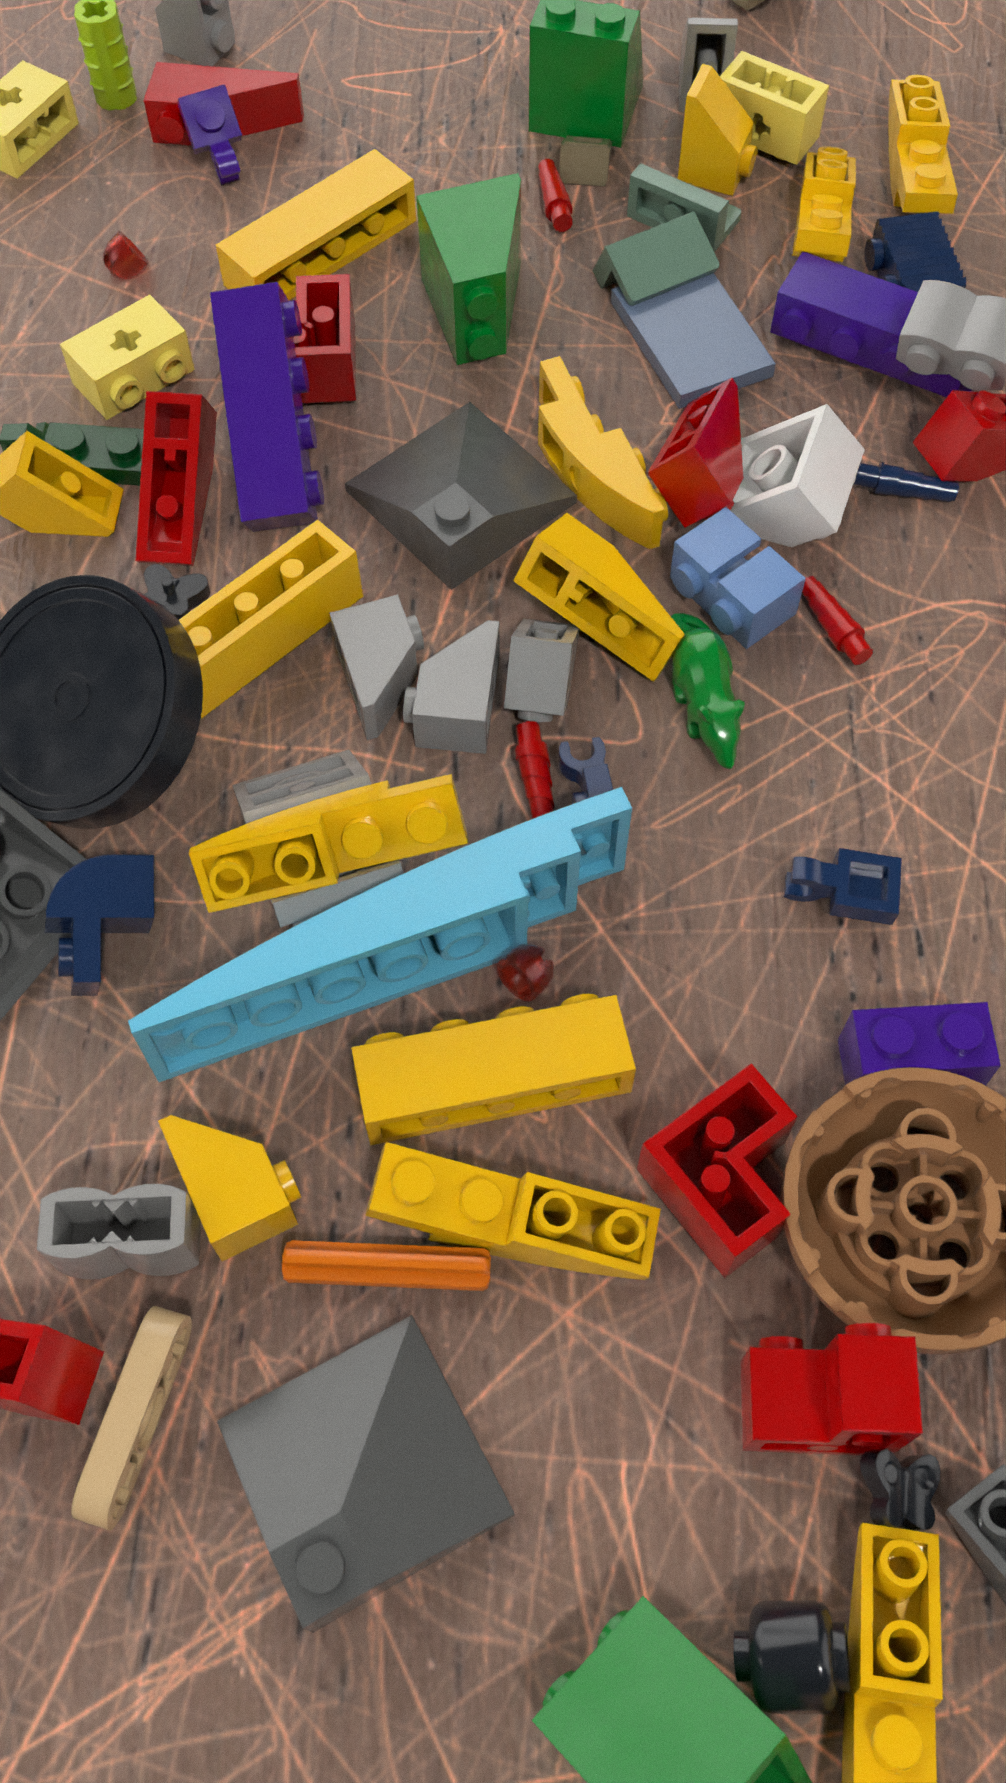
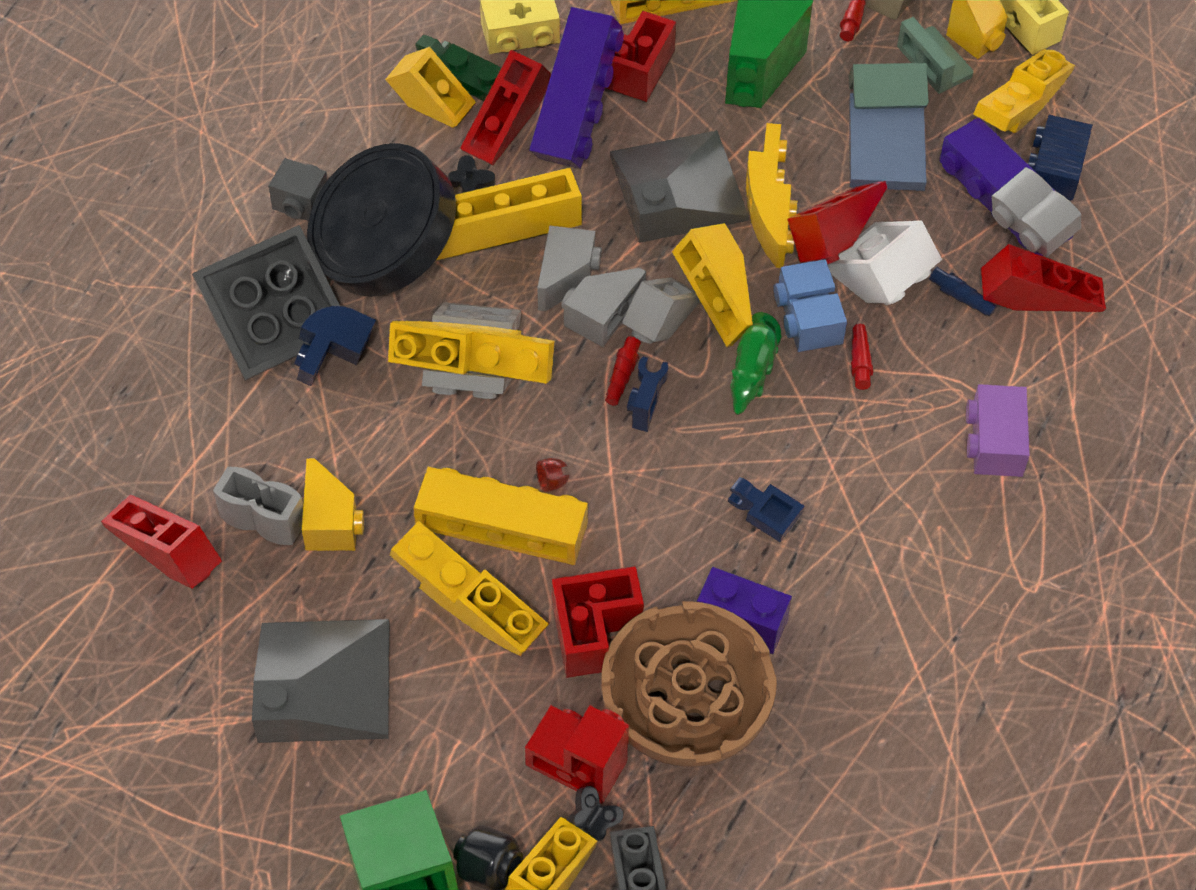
camera: 25 degrees right, 5 degrees down
(131, 1418) = (221, 598): tan beam -> none
(386, 1265) = (389, 588): orange axle -> none
(391, 938) = (484, 420): medium azure slope -> none
(917, 147) = (1120, 75): yellow slope -> none

